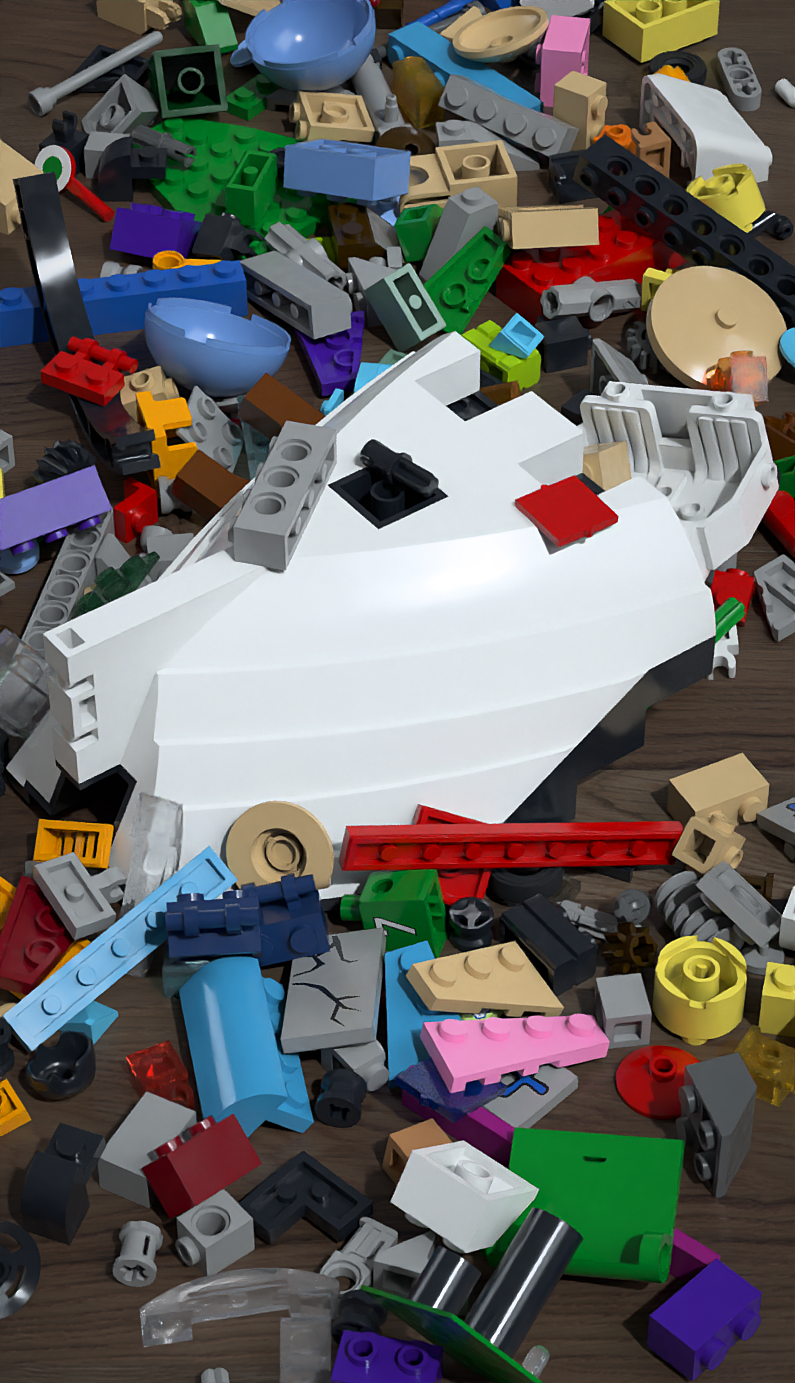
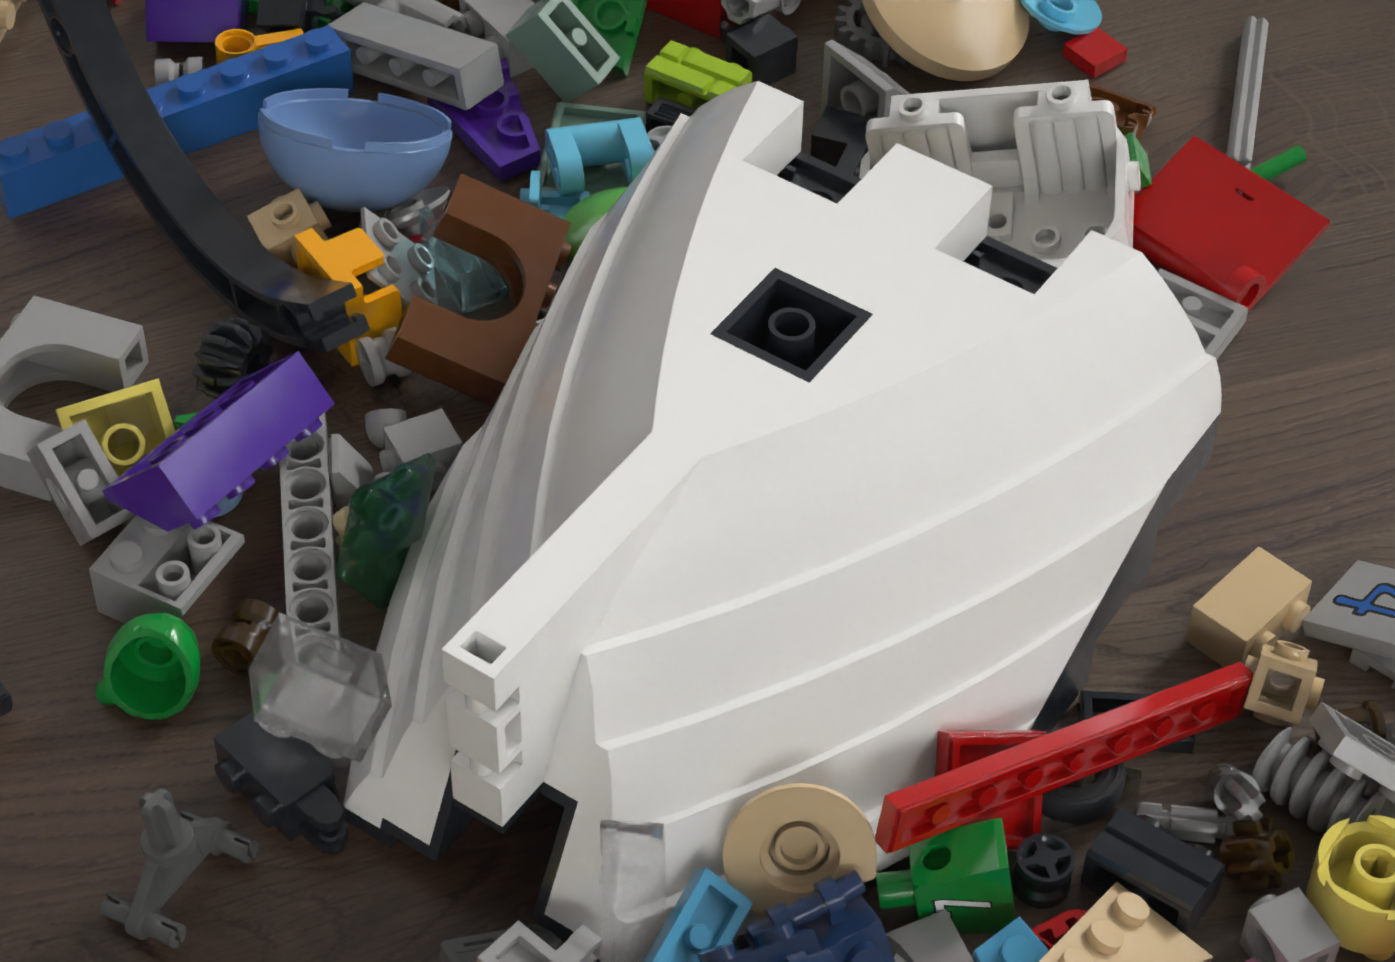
camera: 20 degrees left, 5 degrees up
(50, 841) = (454, 906): light orange slope -> none
(86, 379) = (208, 226): red plate -> none
(135, 511) = (348, 386): red bracket -> none
(283, 495) = (677, 366): light grey brick -> none
(398, 468) = (799, 291): black axle -> none
(517, 338) = (717, 57): medium azure slope -> none
(566, 511) = (1034, 301): red piece -> none
(740, 374) = (1007, 57): clear orange brick -> none

